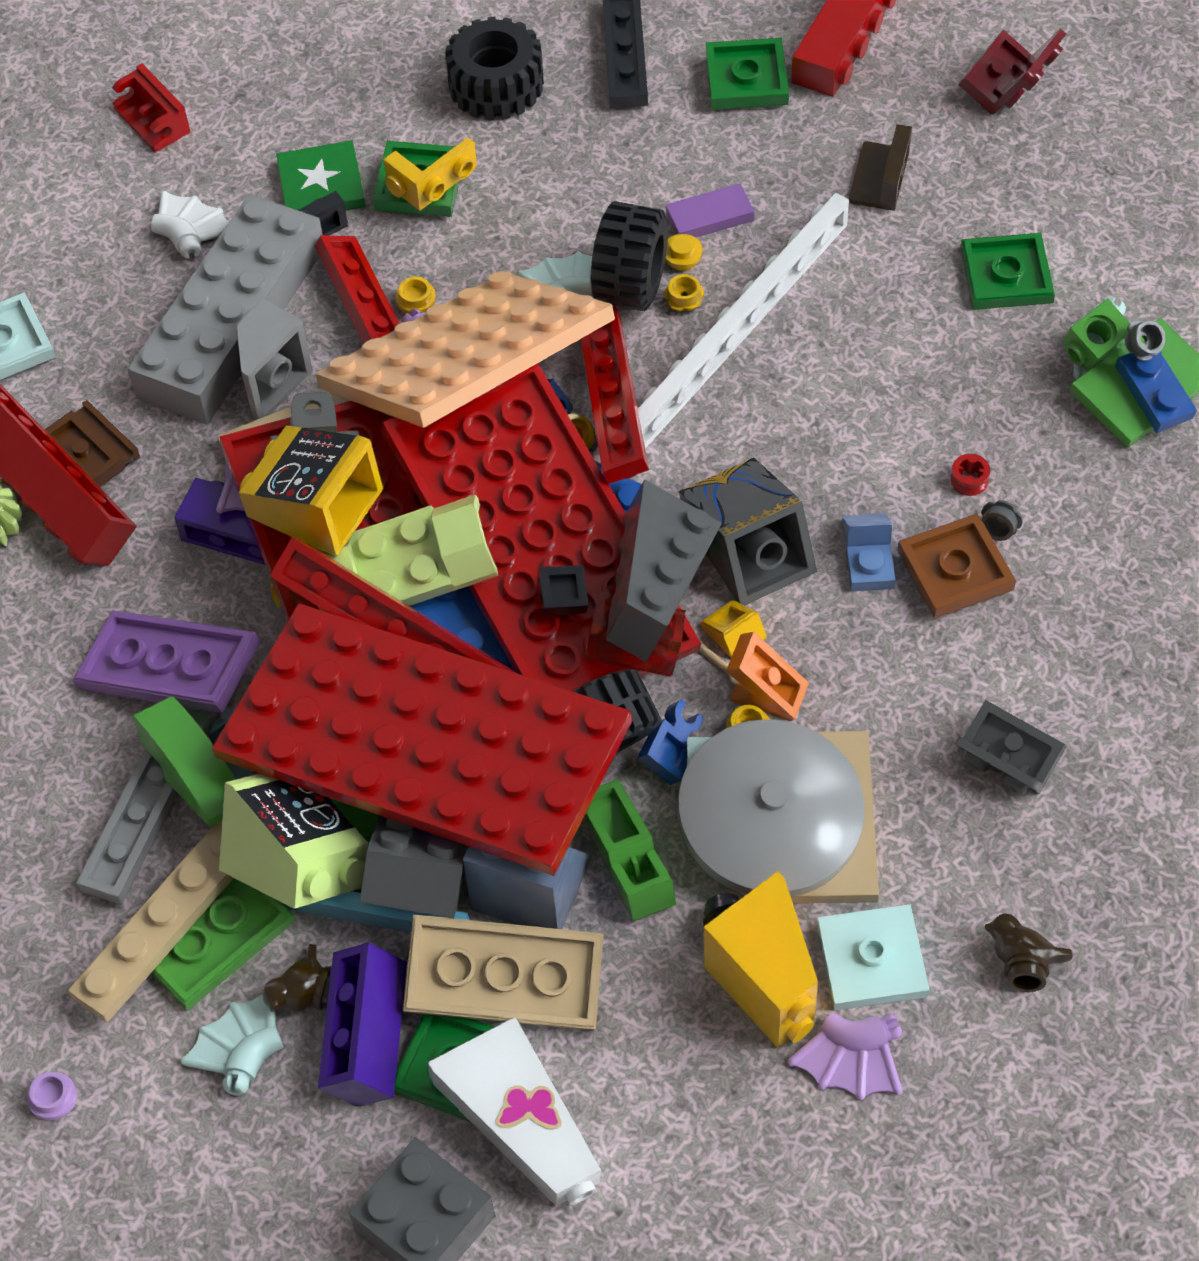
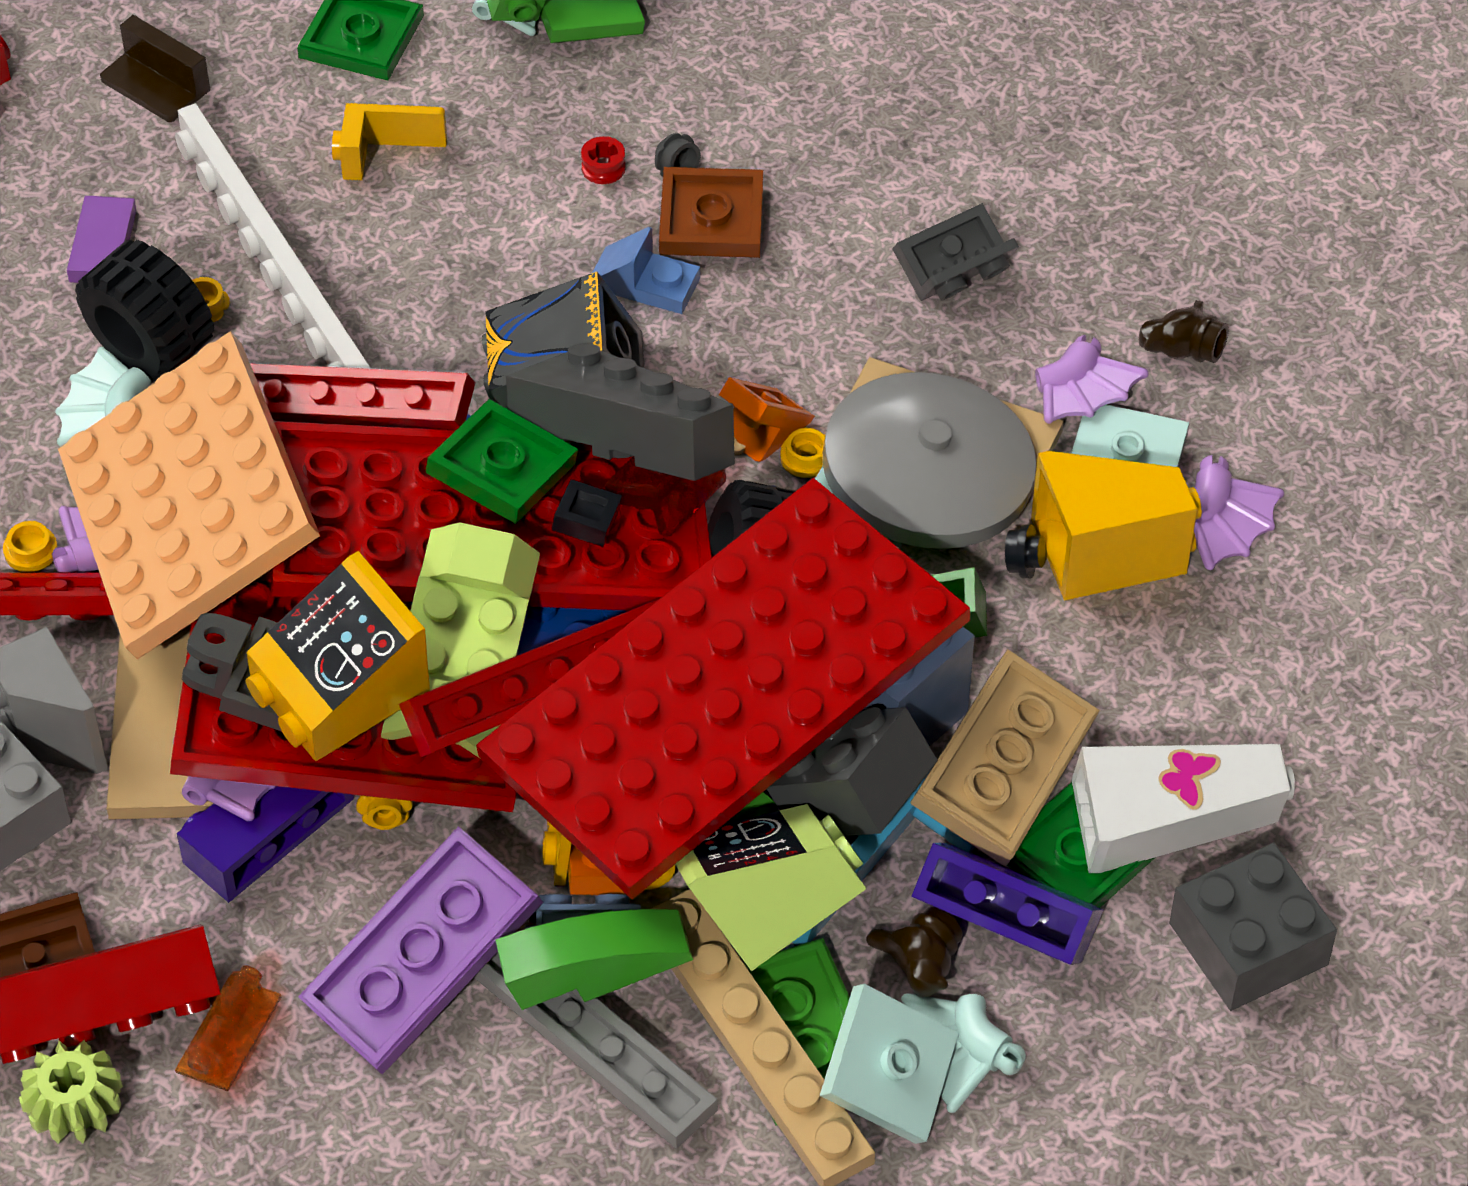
camera: 70 degrees left, 5 degrees down
(68, 584) = (229, 1030): none -> clear orange hinge
(180, 995) = (889, 1063): none -> light aqua plate
(579, 516) = (501, 461): none -> green plate
(897, 308) = (384, 126): none -> yellow bracket
(928, 894) = (1084, 381): none -> lavender arm

